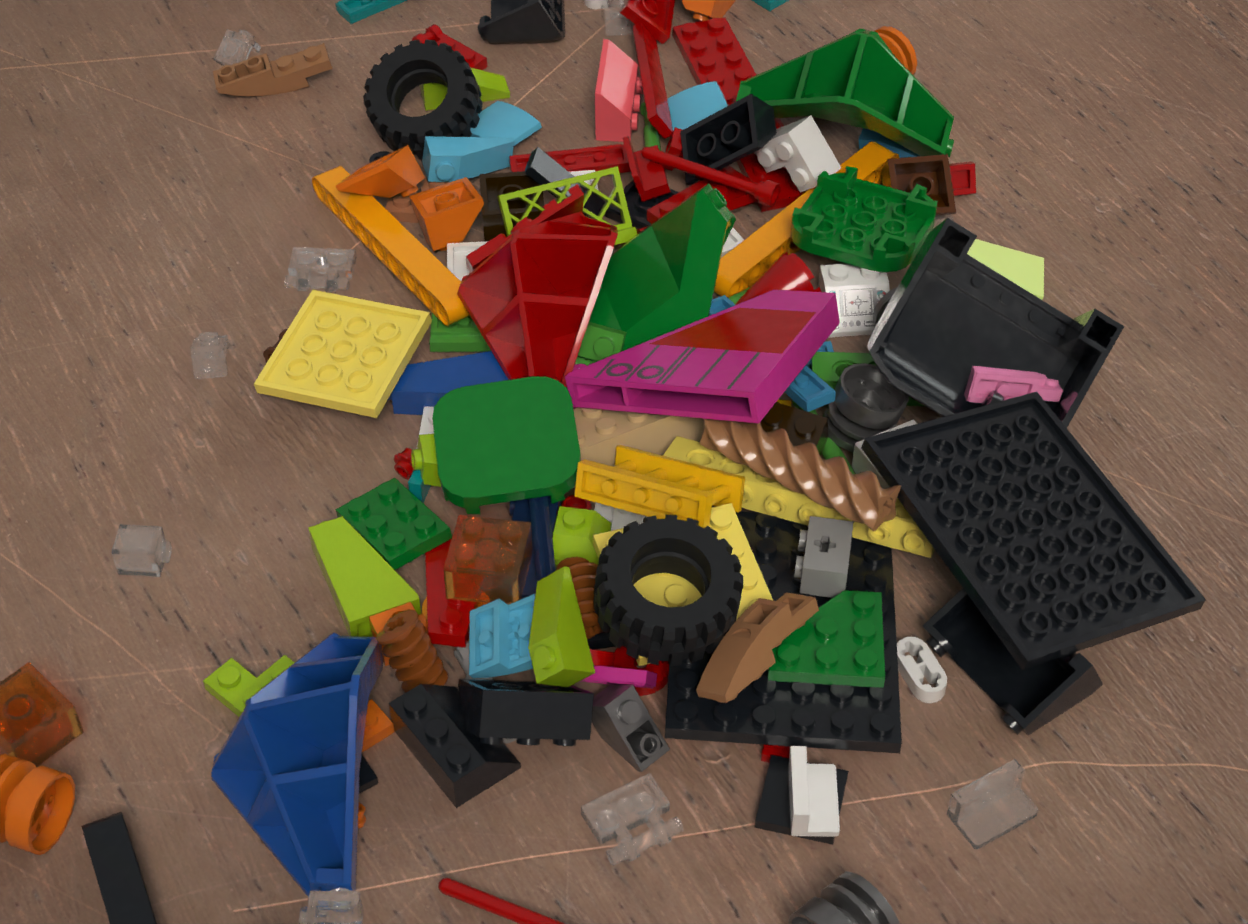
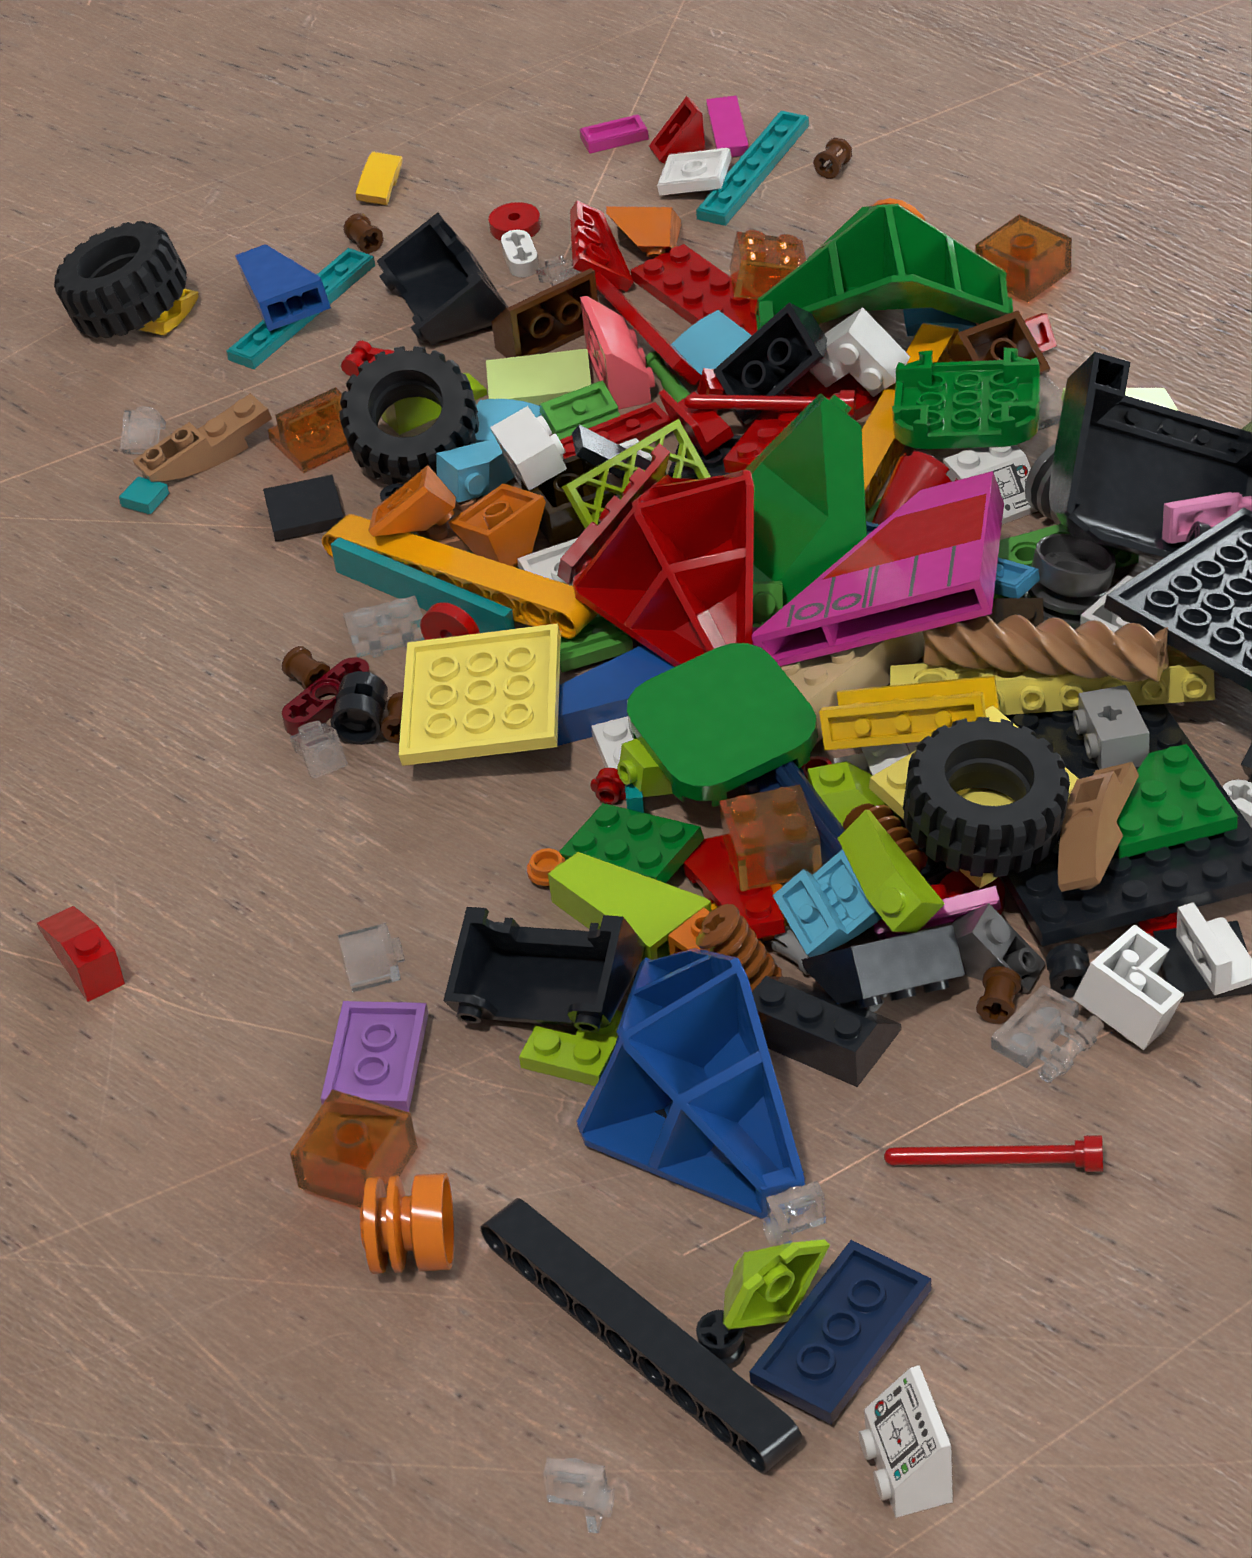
camera: 15 degrees left, 5 degrees down
(95, 639) = (377, 1051): none -> medium lavender plate
(209, 102) = (144, 495): none -> teal tile
(240, 289) = (300, 665): none -> reddish brown bush
(251, 612) = (542, 972): none -> black windscreen
(255, 331) = (359, 707): none -> black wheel
(262, 298) = (307, 706): none -> dark red beam
(317, 148) = (303, 507): none -> black tile
(318, 513) = (541, 864): none -> orange plate
(347, 87) = (311, 431): none -> clear orange bracket
(357, 283) = (446, 621): none -> red piece
(366, 250) = (404, 582): none -> teal tile
(493, 154) = (529, 448): none -> white brick
(553, 96) = (538, 376): none -> yellowish green tile
(565, 132) = (581, 407): none -> bright green plate
(577, 48) = (545, 318): none -> reddish brown slope
(610, 767) = (1000, 987): none -> reddish brown bush
(680, 766) = (1067, 968): none -> black wheel
(711, 803) = (1127, 991): none -> white brick
(769, 48) = (762, 261): none -> clear orange brick
(985, 109) = (1029, 255): none -> clear orange brick

